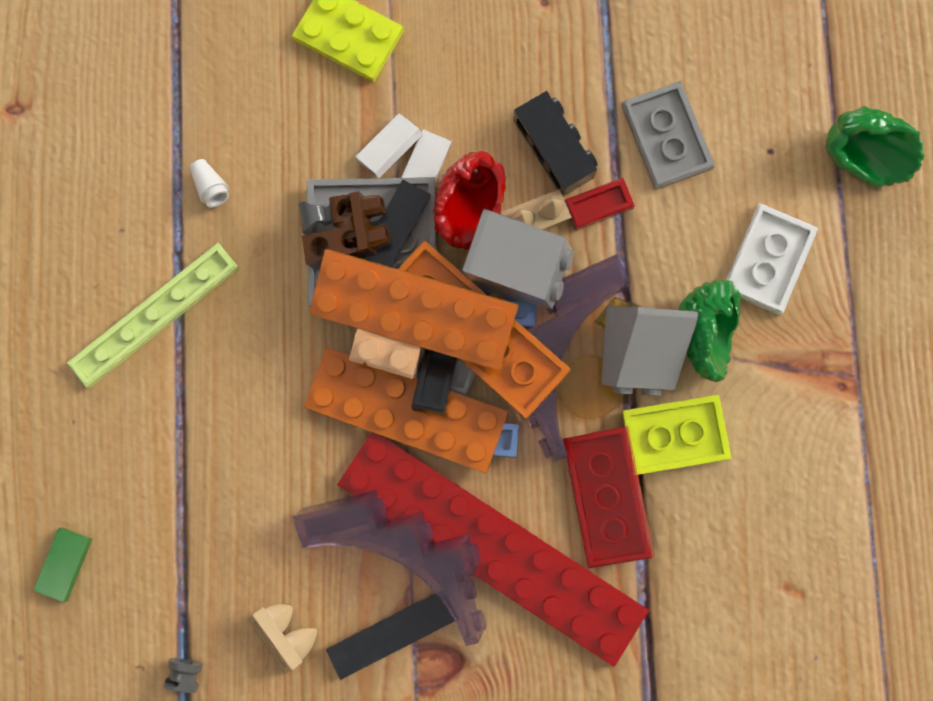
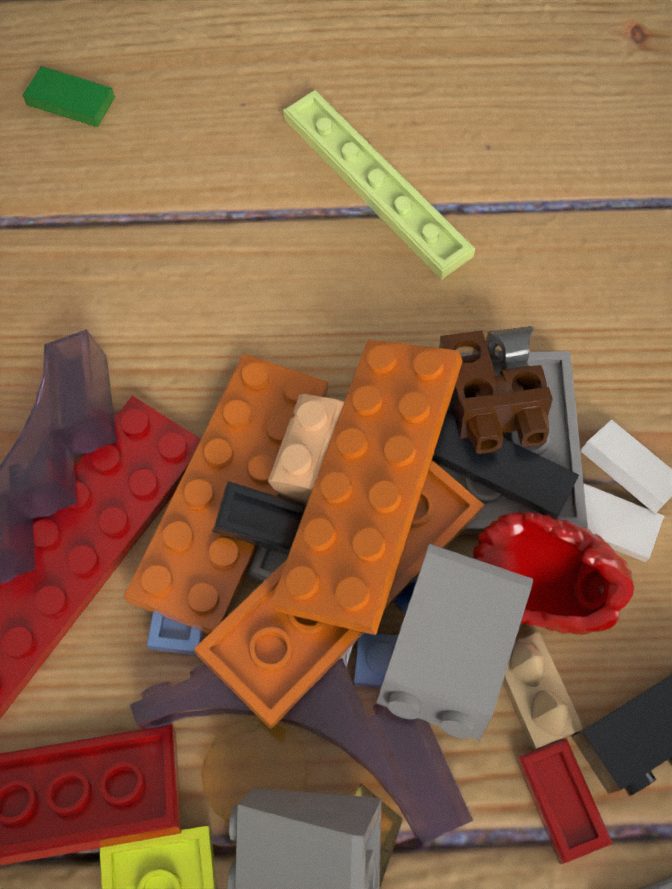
camera: 90 degrees right, 15 degrees down
(209, 185) = (554, 235): white cone -> none

